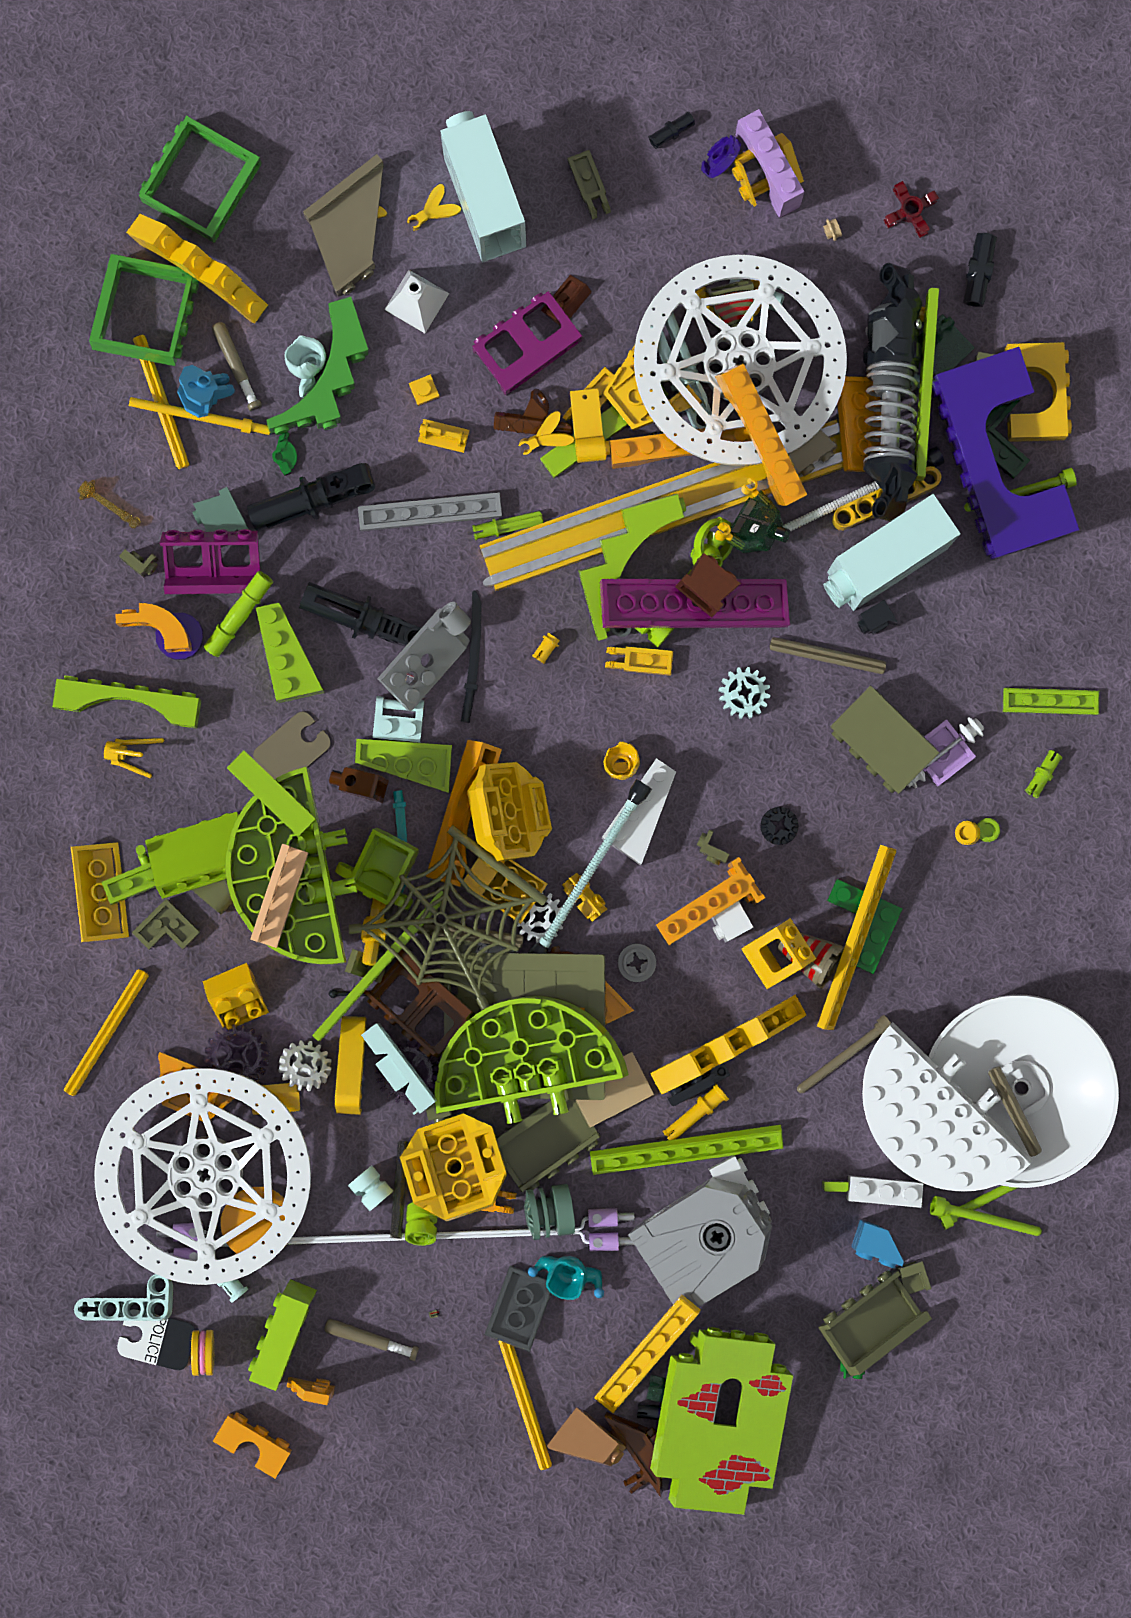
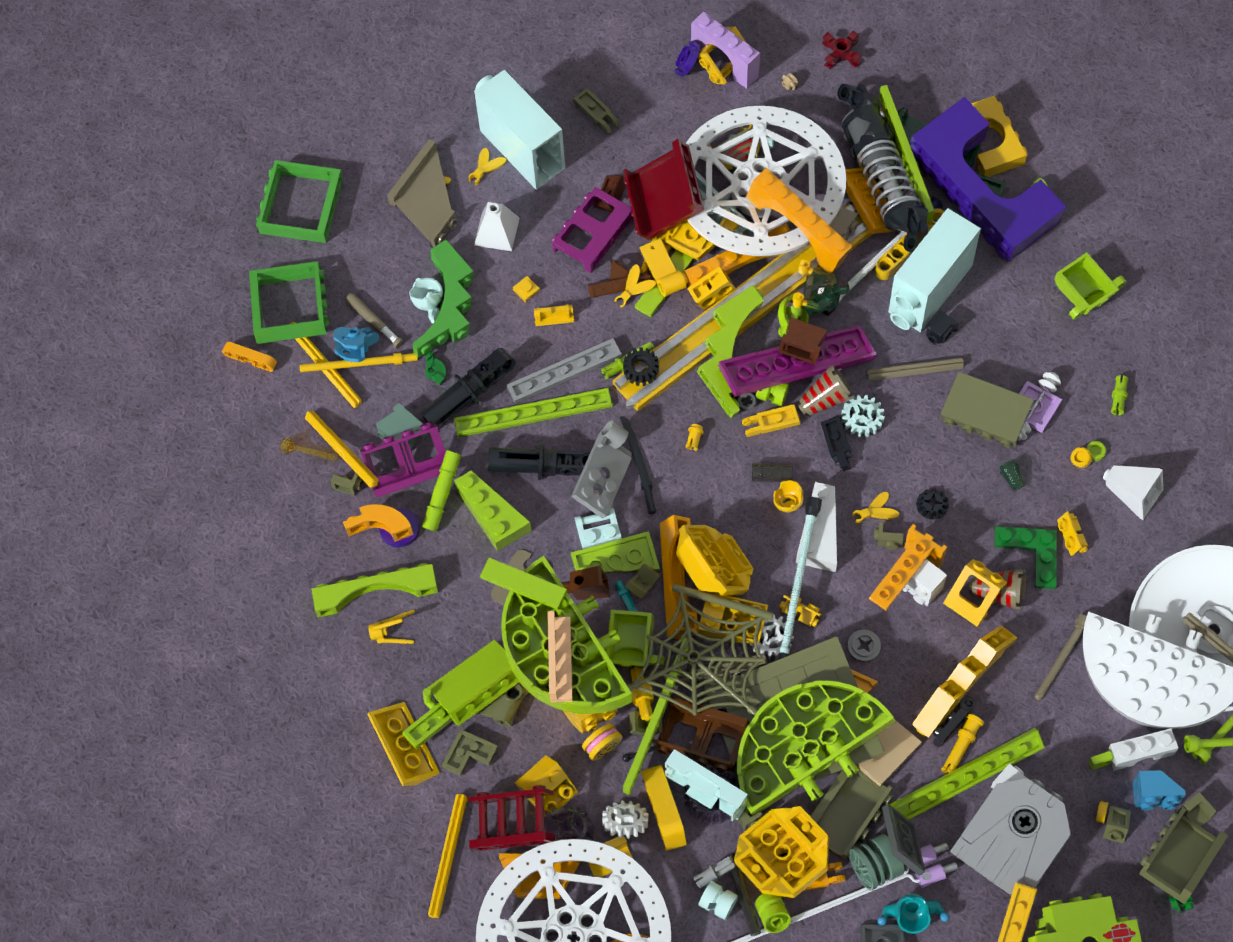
camera: 15 degrees left, 20 degrees down
(79, 361) = (245, 354): none -> light orange beam
(144, 520) = (342, 449): none -> yellow axle
(166, 1041) = (521, 836): none -> dark red fence
(190, 258) = (313, 249): yellow arch -> none
(309, 972) = (602, 741): none -> yellow head
(377, 549) = (533, 412): none -> lime tile
(378, 1156) = (714, 872): none -> light grey axle
(422, 802) = (642, 581): none -> olive bracket
(515, 530) = (637, 356): none -> black tyre
(586, 1201) = (903, 839): none -> dark grey tile
(615, 724) = (771, 472): none -> clear smoke axle
(621, 334) = (664, 192): none -> dark red panel
(633, 473) = (711, 288): none -> yellow brick
(671, 130) = (643, 56): black pin -> none
(703, 713) = (837, 441): none -> black hinge
(713, 809) = (875, 509): none -> yellow piece
(714, 652) = (826, 392): none -> dark tan cone
(812, 1241) = (1101, 813): none -> yellow tile
(823, 1259) = (1117, 824): none -> olive bracket
(856, 938) = (1031, 561): yellow tile -> none
(881, 825) = (1011, 473): none -> clear green cone
(917, 908) = (1069, 526): none -> yellow hinge
(980, 269) = (910, 72): black piece -> none
(1010, 892) = (1135, 486): none -> white slope
(1050, 701) = (1100, 343): lime tile -> none
(1064, 629) = (1086, 285): none -> lime piece

